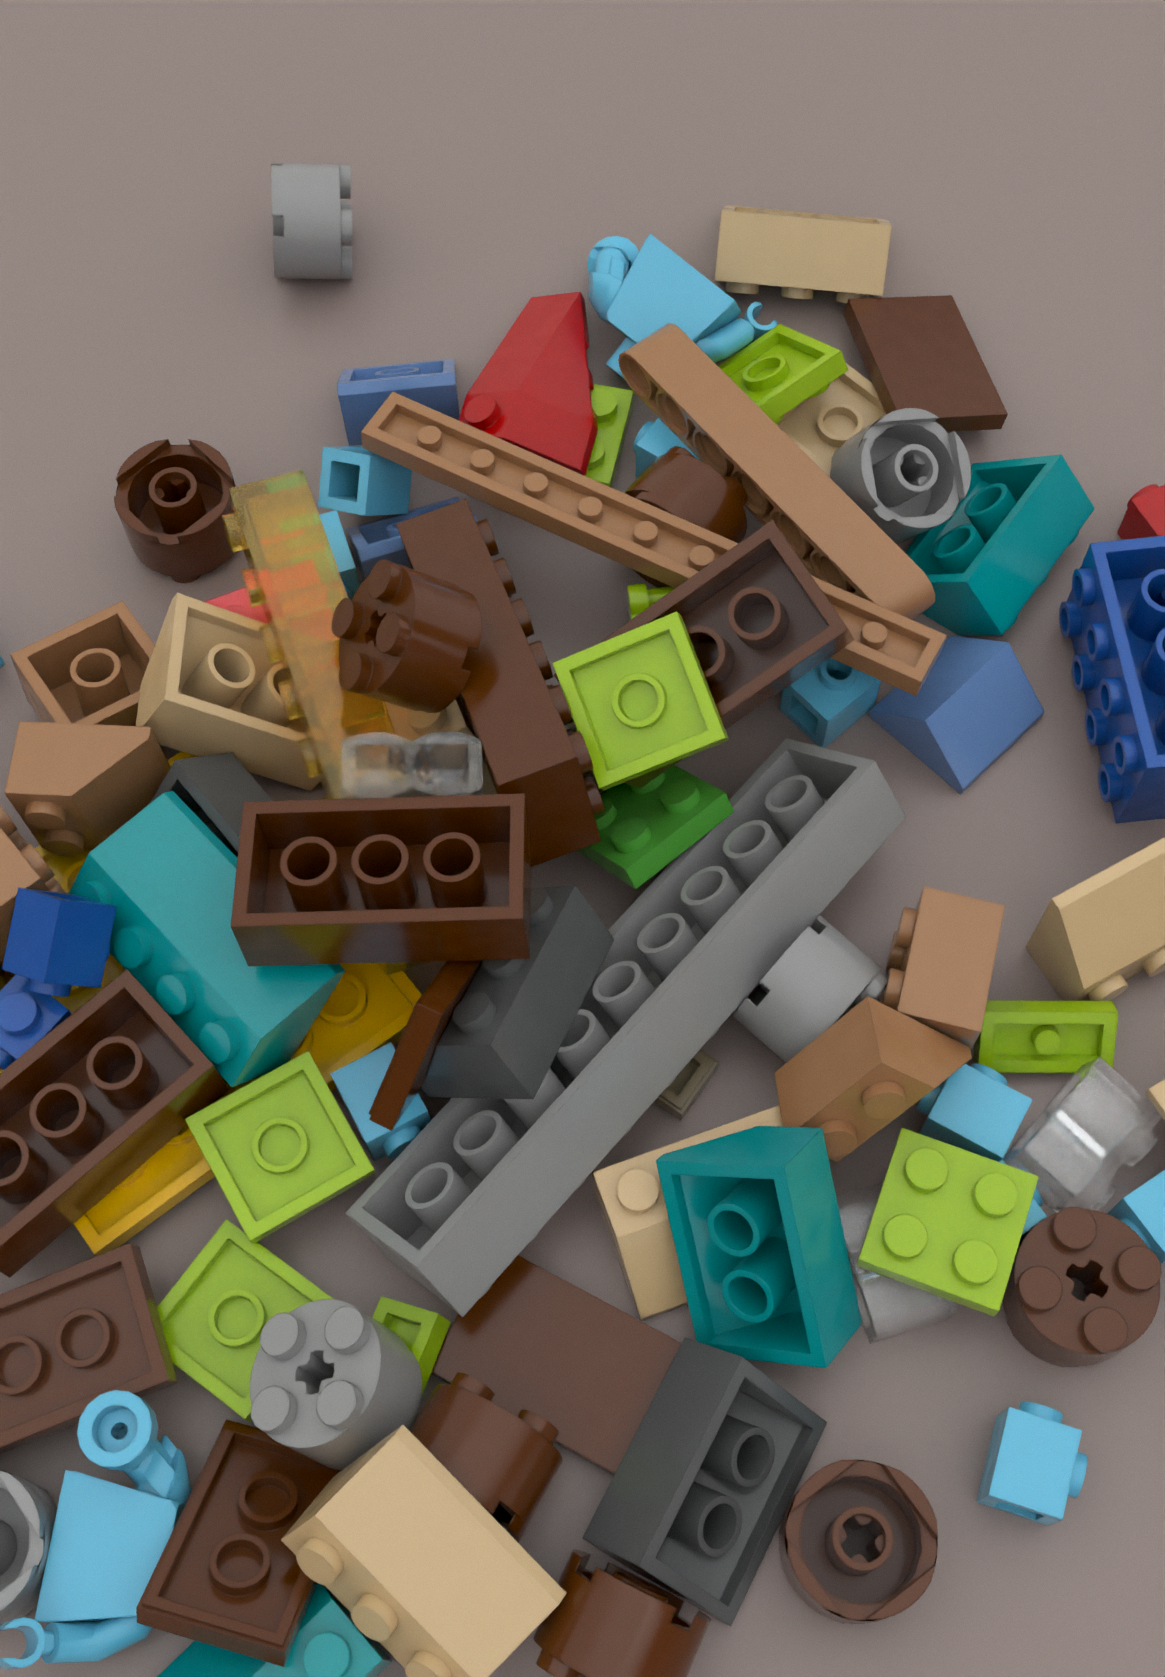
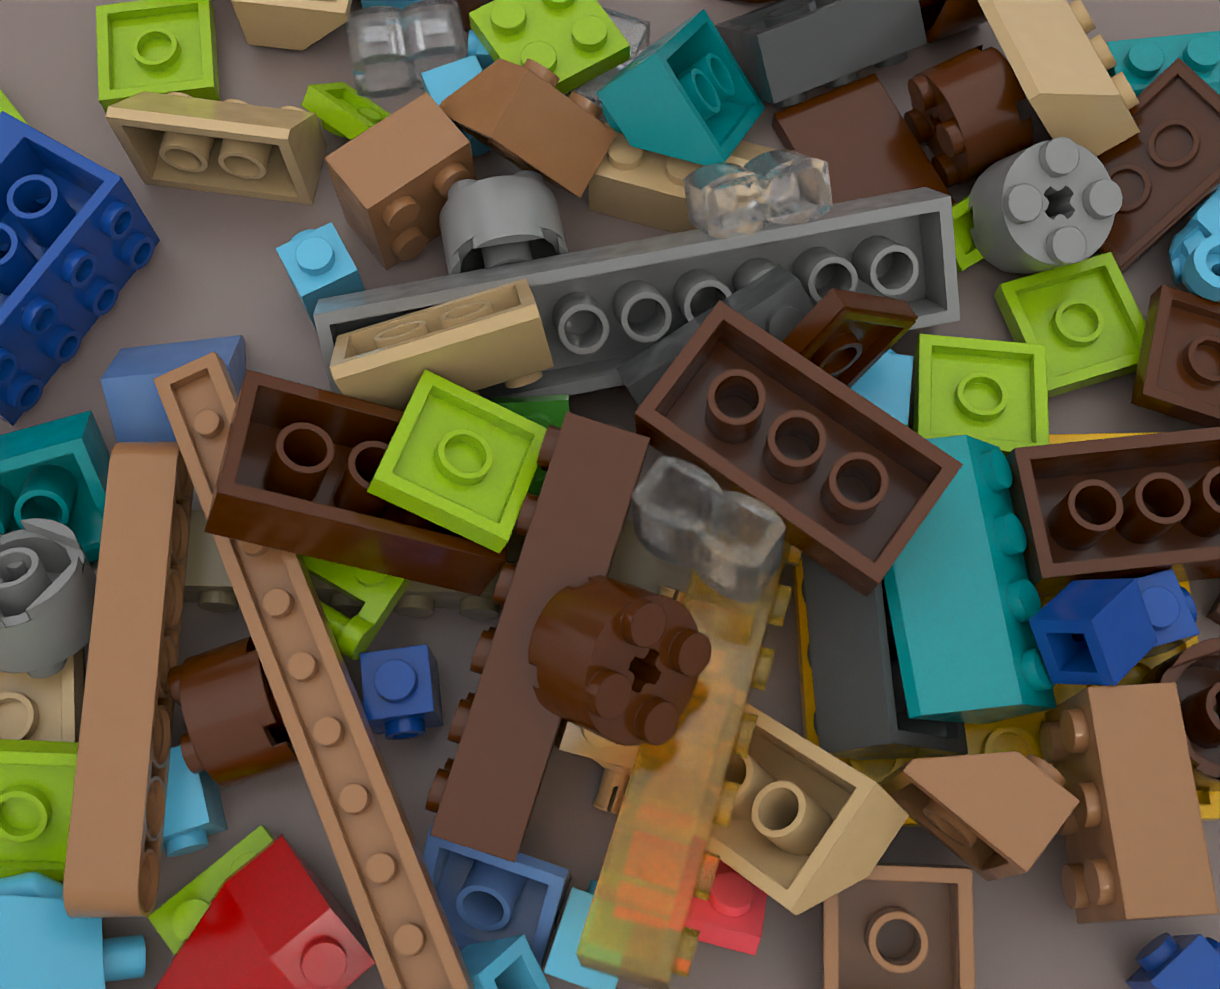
camera: 145 degrees left, 5 degrees up
(581, 609) = (401, 691): none -> blue brick
(599, 1141) = (773, 187): none -> clear brick
(745, 800) = (467, 341): none -> tan slope
(942, 859) = (319, 266): none -> medium azure brick

